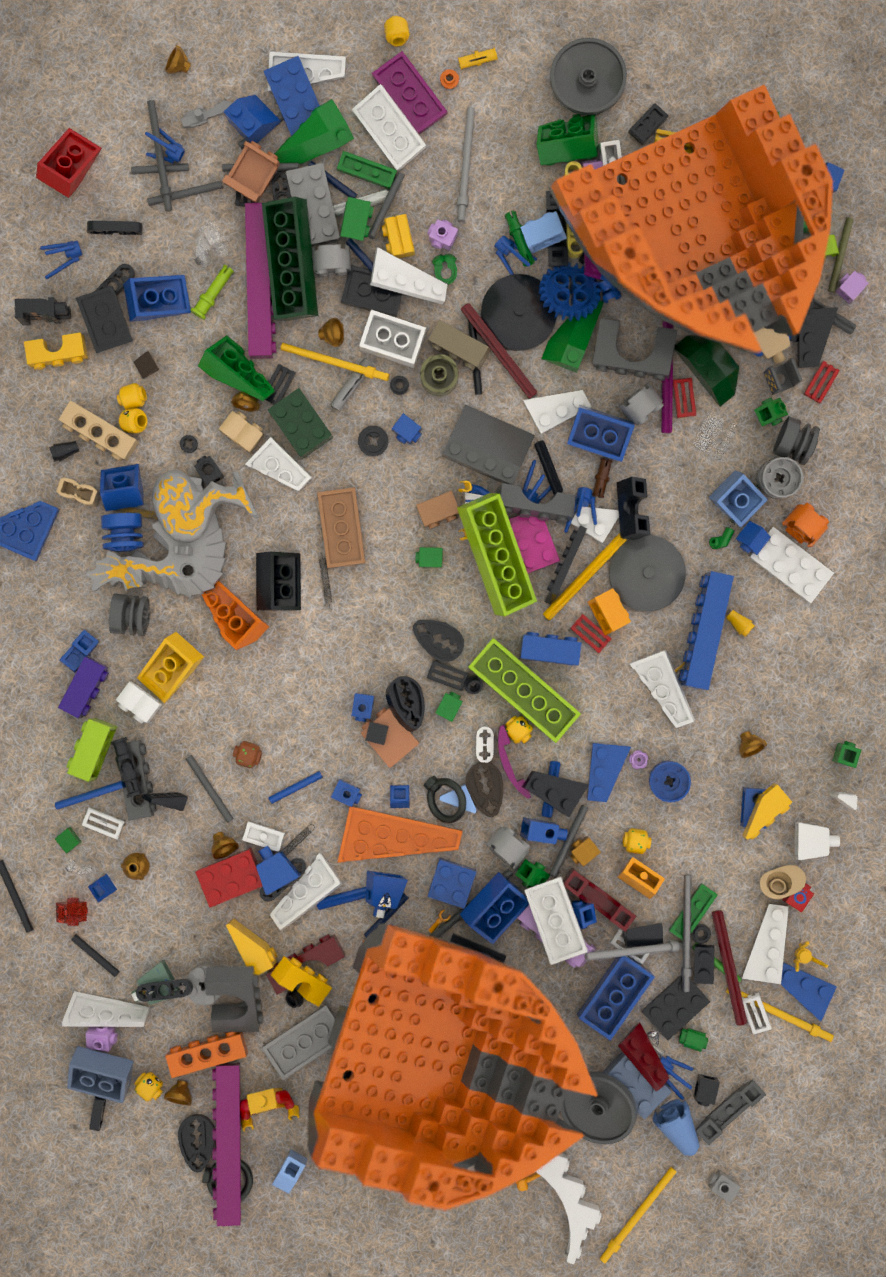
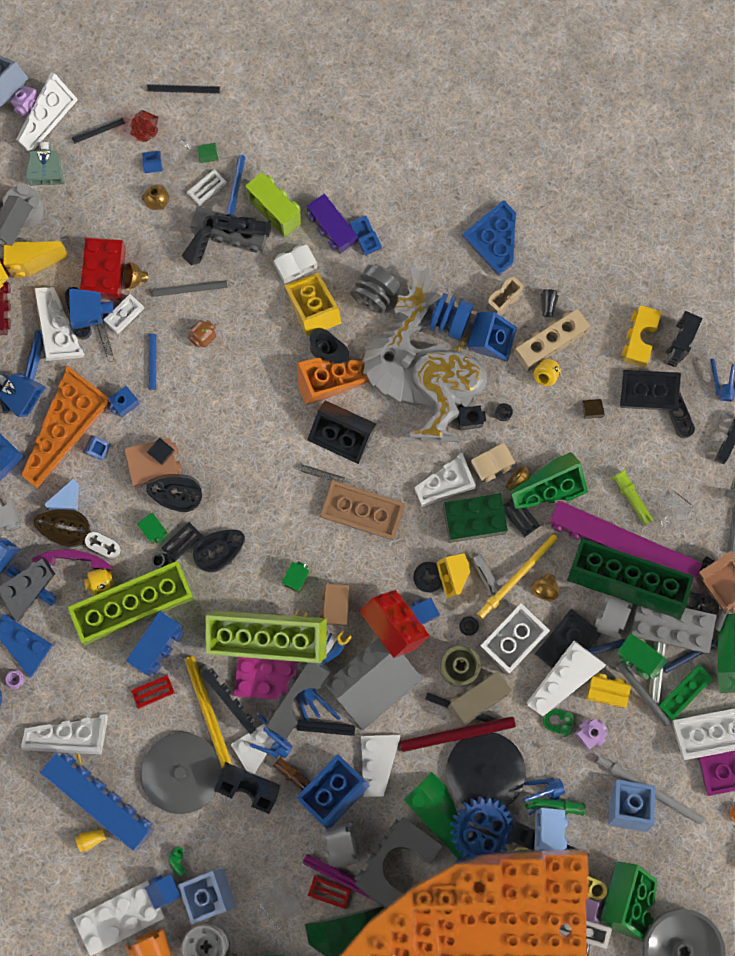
camera: 115 degrees right, 10 degrees down
(132, 396) = (569, 382): yellow head -> none
(150, 986) = (36, 175): black beam -> none
(156, 297) = (650, 446): blue slope -> none
(205, 631) = (327, 346): none -> black piece
(360, 418) = (453, 574): none -> yellow slope
(362, 707) = (192, 452): blue brick -> none
(430, 448) = (394, 623): none -> red brick
(433, 785) = (90, 482): pearl dark grey piece -> none
(487, 172) = (632, 806): none -> medium blue slope
(609, 611) = (163, 718): light orange brick -> none

